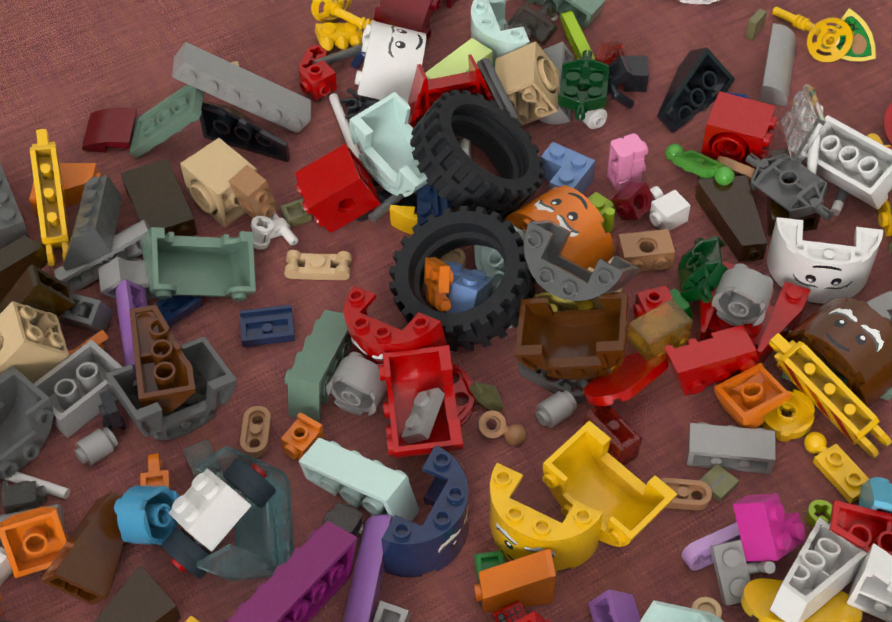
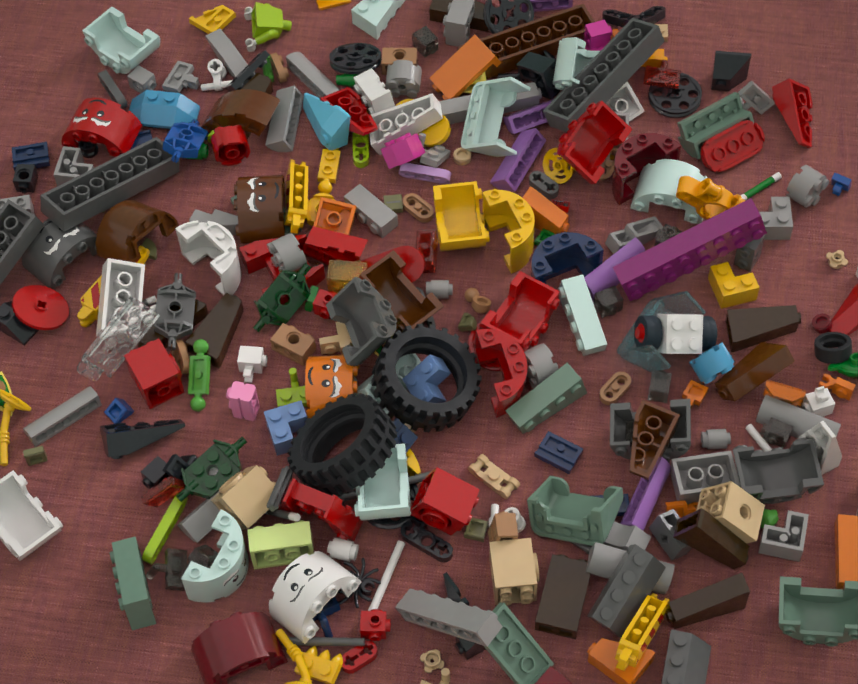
camera: 140 degrees left, 5 degrees up
(110, 412) = (696, 443): black plate -> none
(301, 436) = (592, 365): orange brick -> none
(423, 415) = (520, 316): light grey plate -> none
(438, 278) = (445, 379): orange plate -> none
(633, 201) = (267, 377): dark red brick -> none

